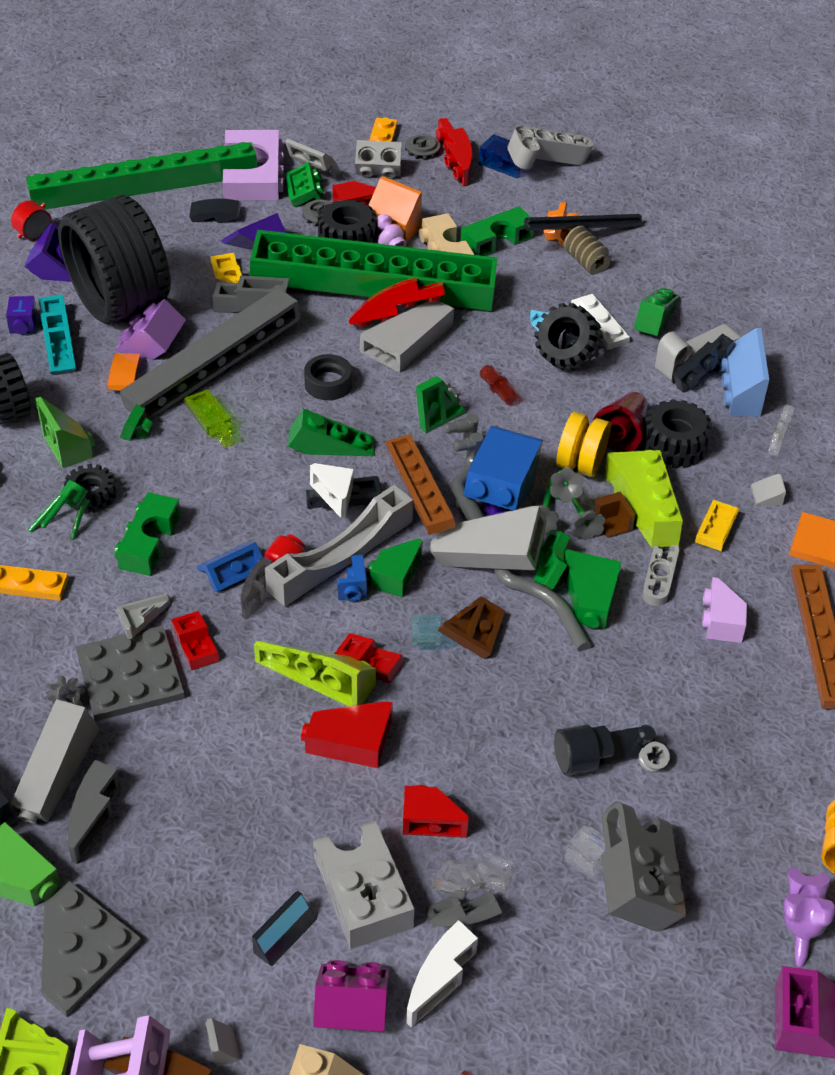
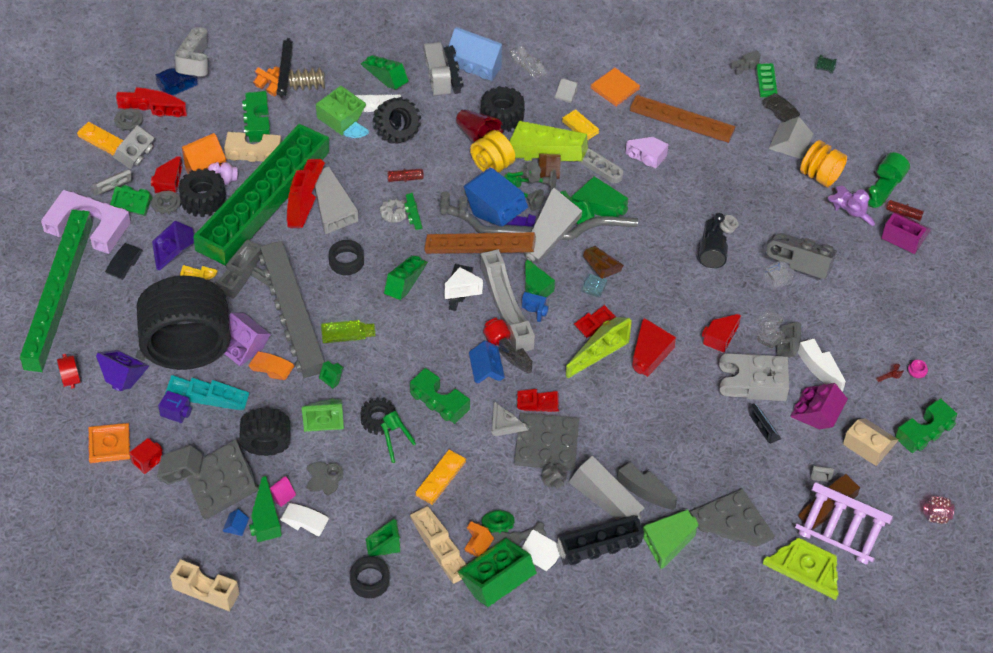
camera: 65 degrees left, 5 degrees up
(556, 286) = (340, 109): none -> bright green slope

